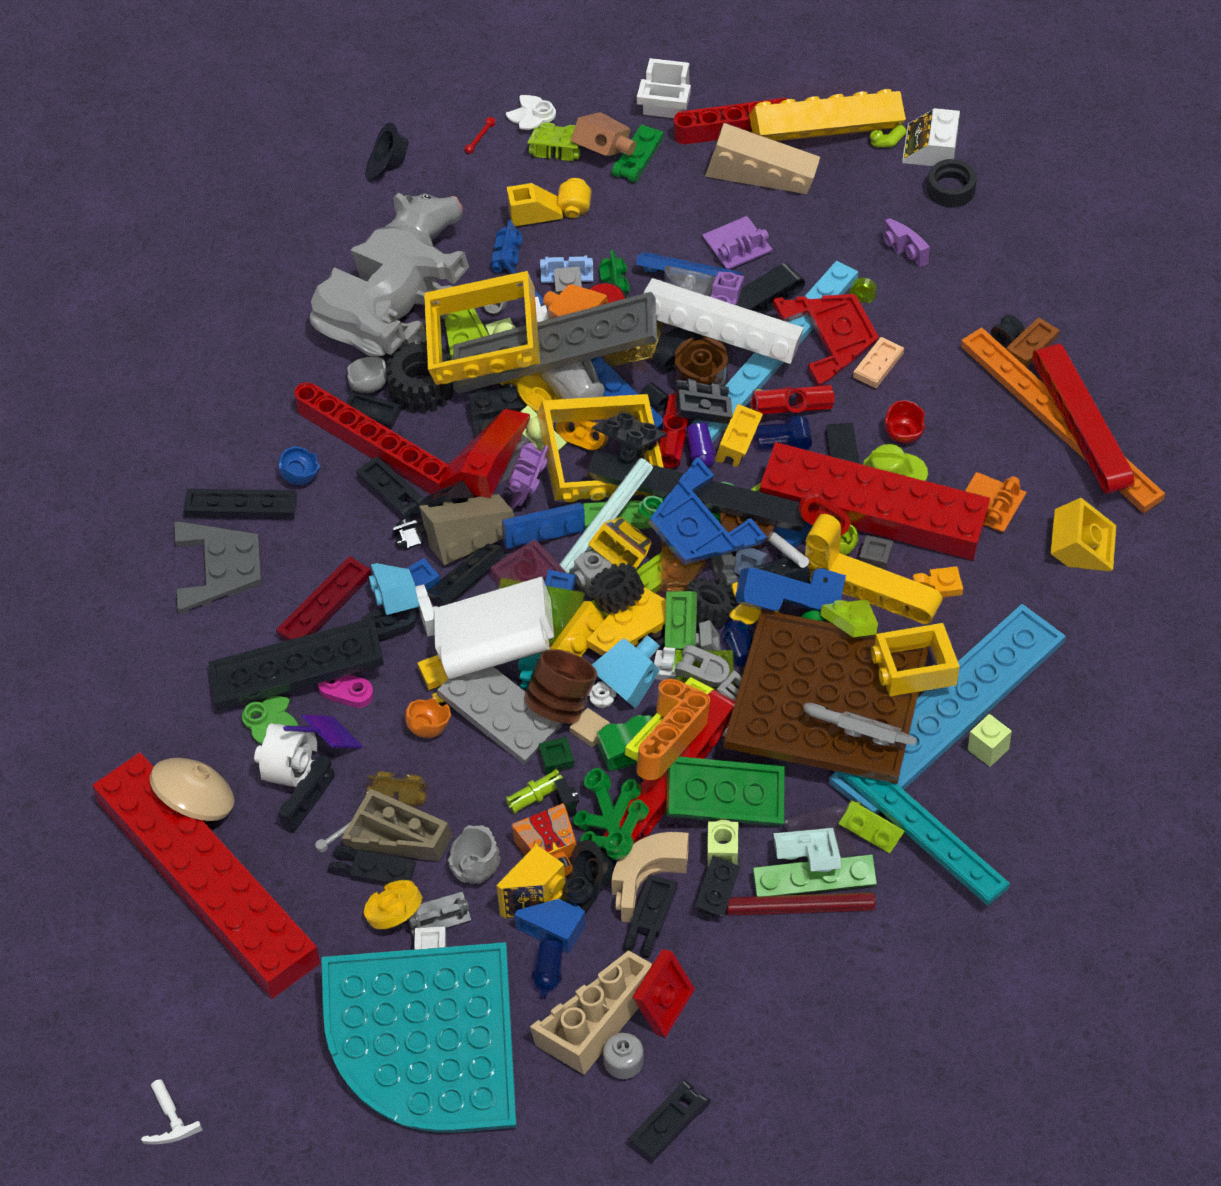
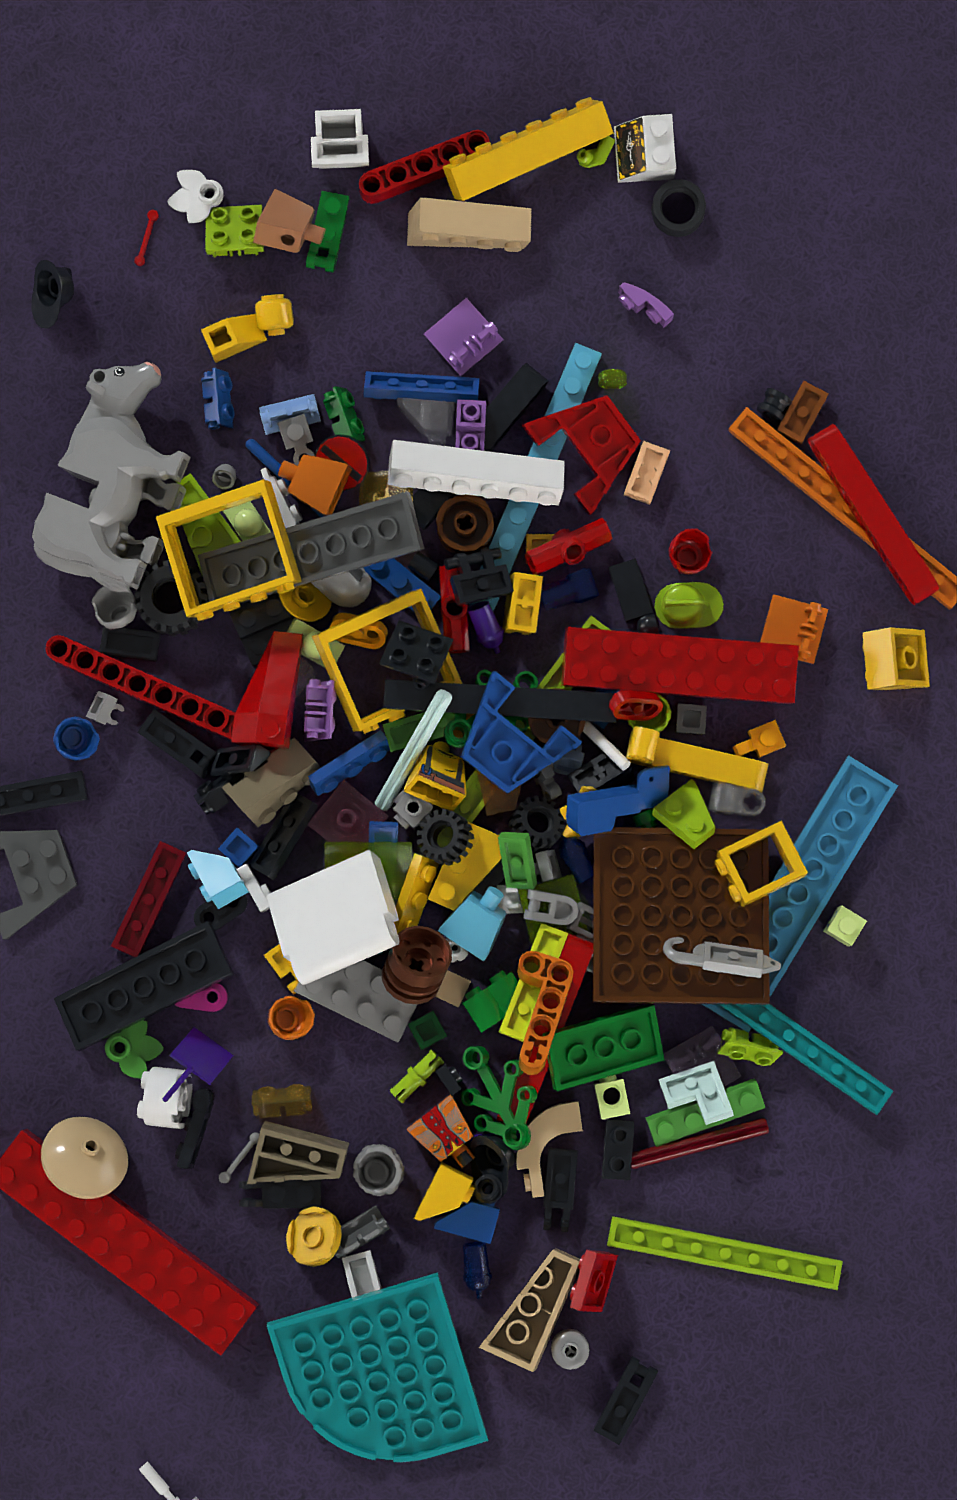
camera: 15 degrees left, 30 degrees up
(331, 449) = (102, 708): none -> light grey tile
(807, 1008) = (724, 1253): none -> lime tile
(902, 616) = (730, 798): none -> clear piece

